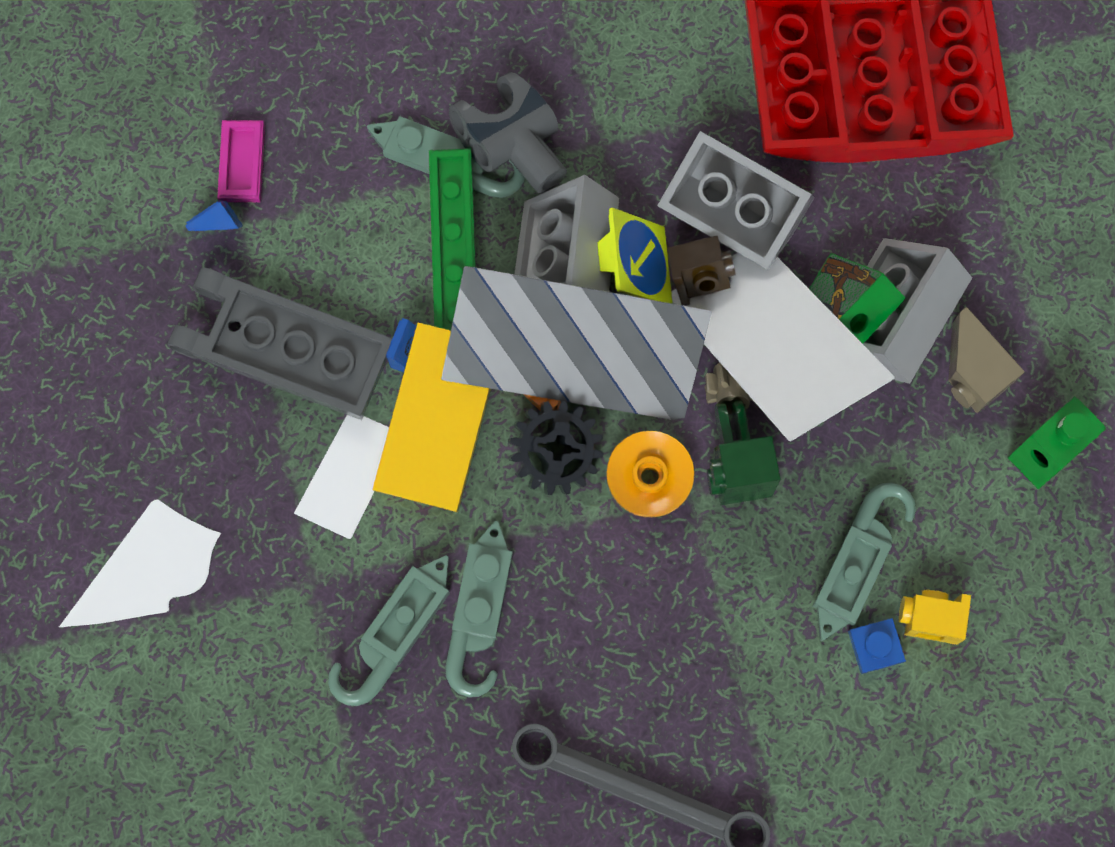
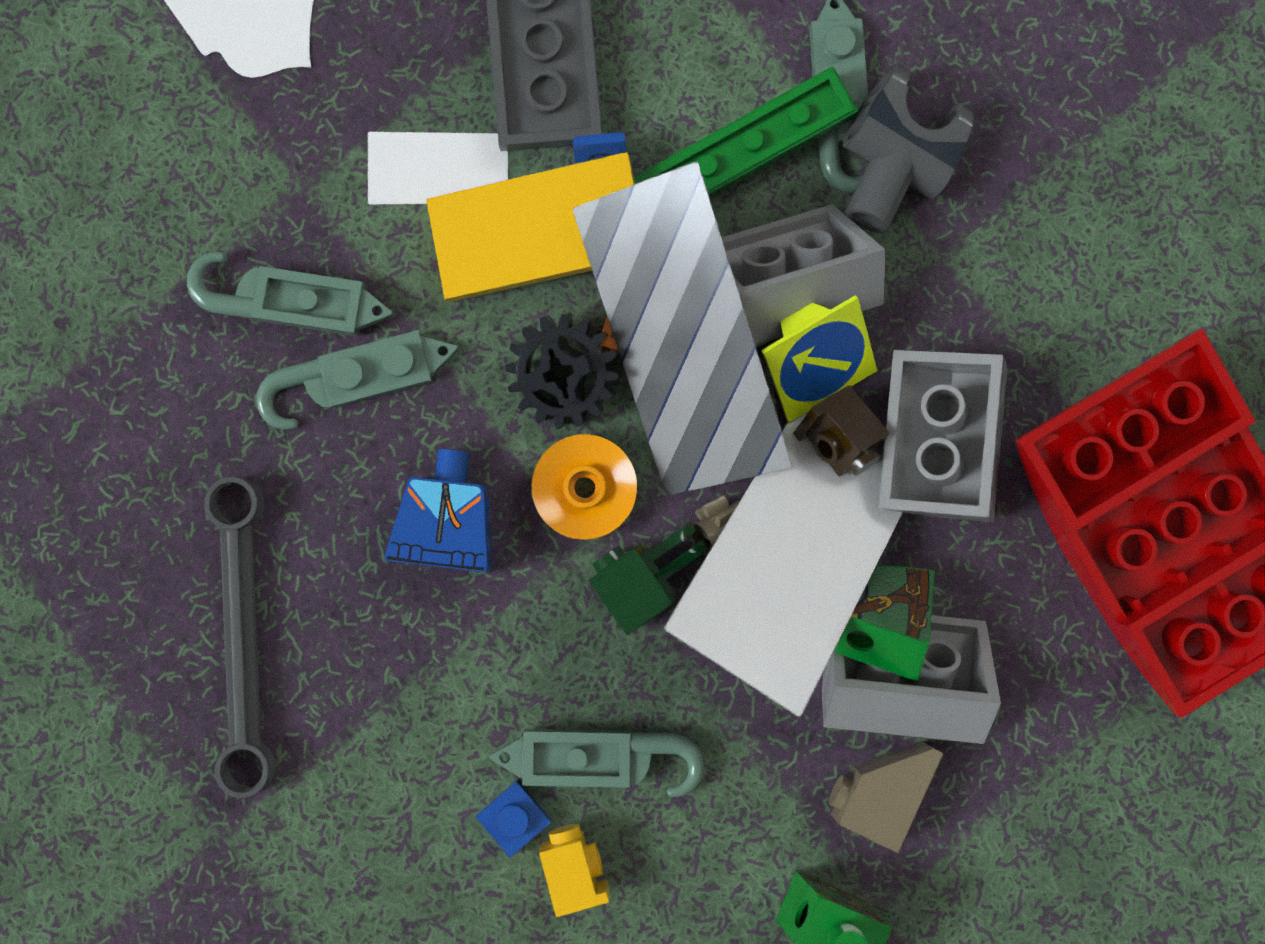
camera: 60 degrees right, 10 degrees up
(625, 588) = (444, 519): none -> blue torso

